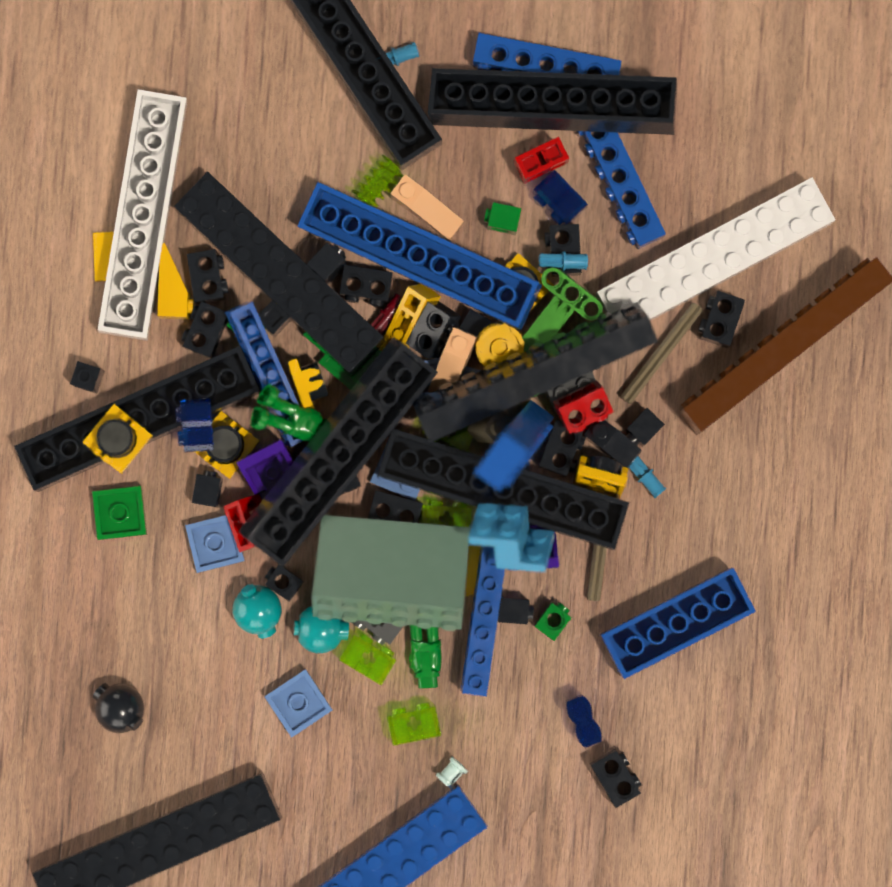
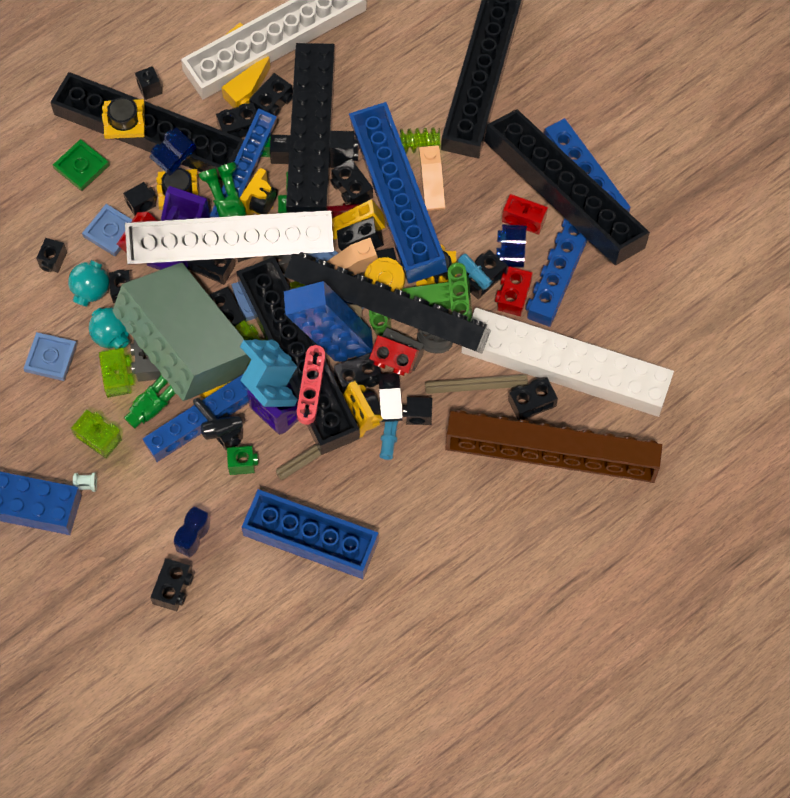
camera: 50 degrees right, 20 degrees down
(185, 613) = (49, 248): none -> black brick
(403, 53) = (510, 94): dark azure axle -> none
(503, 218) = (468, 225): green brick -> none
(509, 622) = (215, 426): none -> black piece
(549, 510) = (311, 384): none -> coral beam
(611, 236) = (515, 291): none -> red brick

